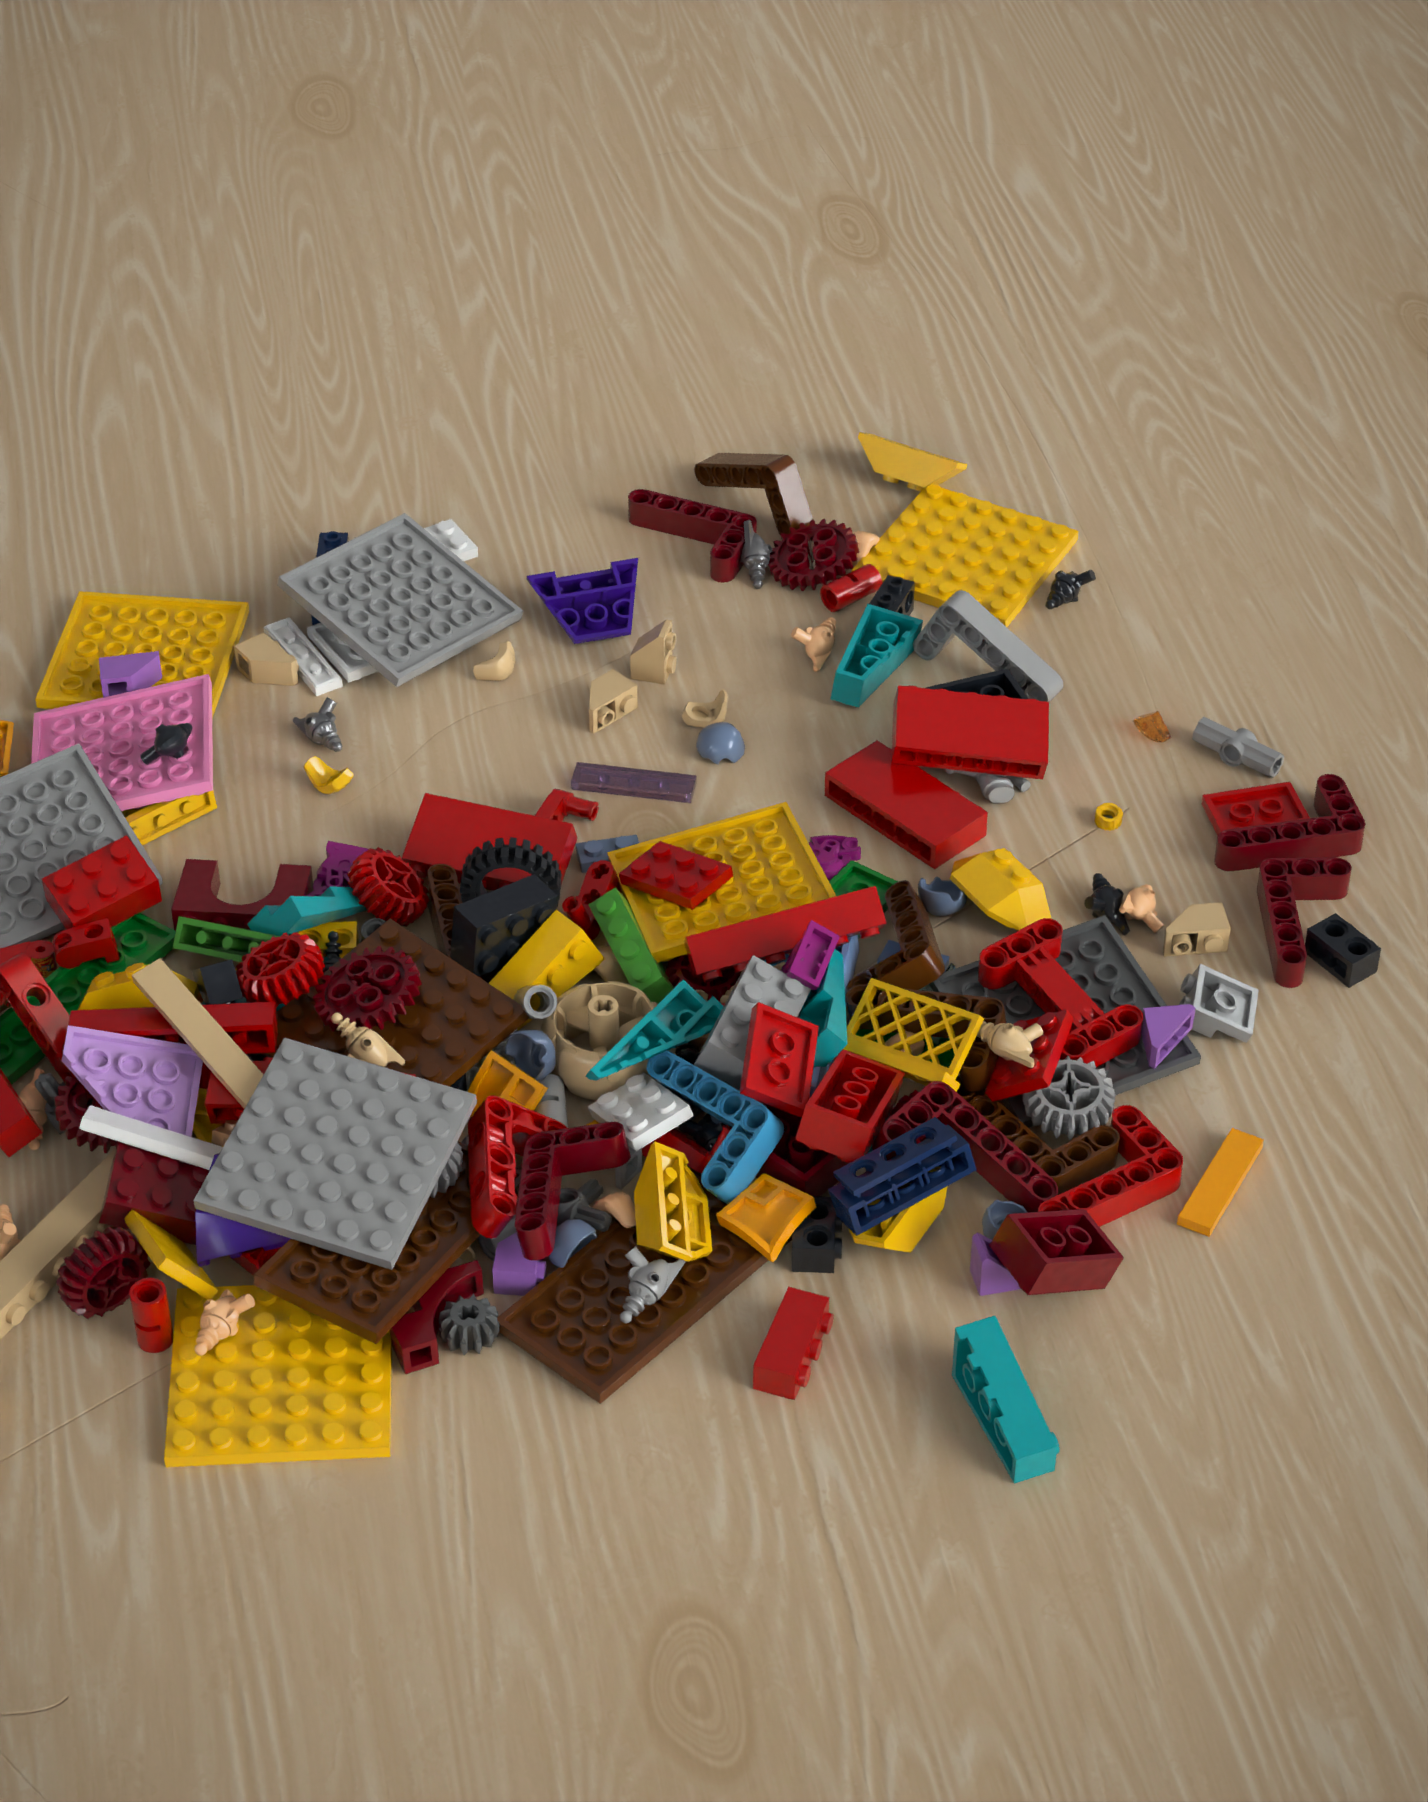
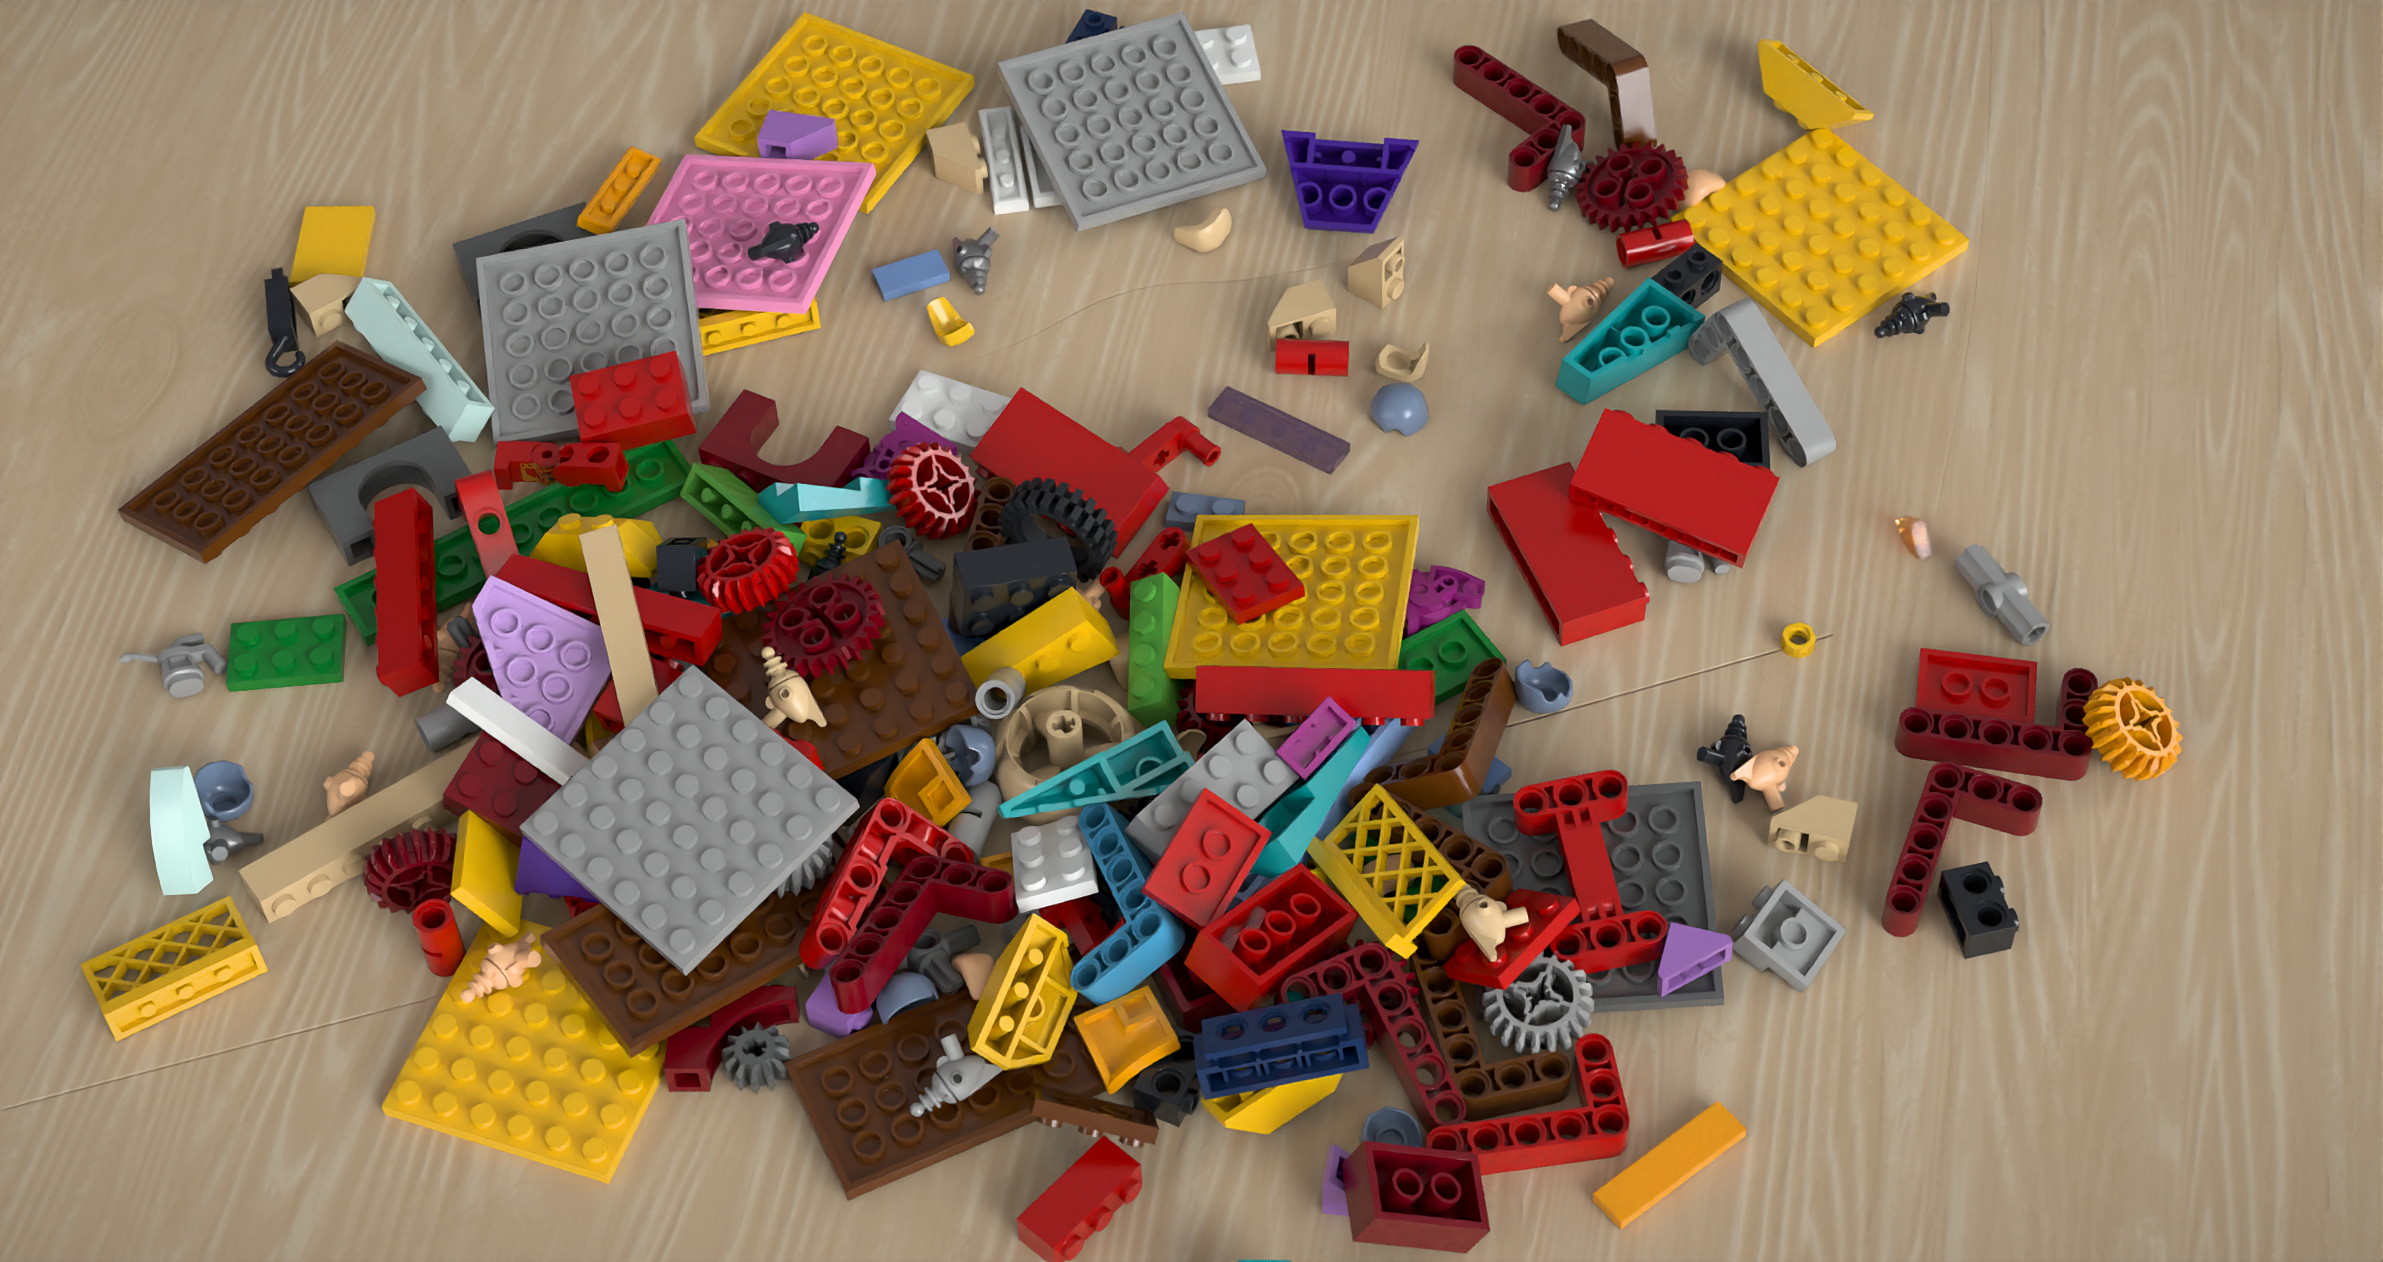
camera: 25 degrees right, 10 degrees up
(64, 1165) = (443, 727): none -> light grey pin
(272, 752) = (910, 275): none -> medium blue tile
(364, 831) = (951, 409): none -> white plate
(633, 725) = (1312, 357): none -> red pin
(774, 1274) = (1093, 1115): none -> reddish brown plate
(1001, 888) = (1612, 705): yellow wedge -> none
(1385, 802) = (2132, 729): none -> light orange gear

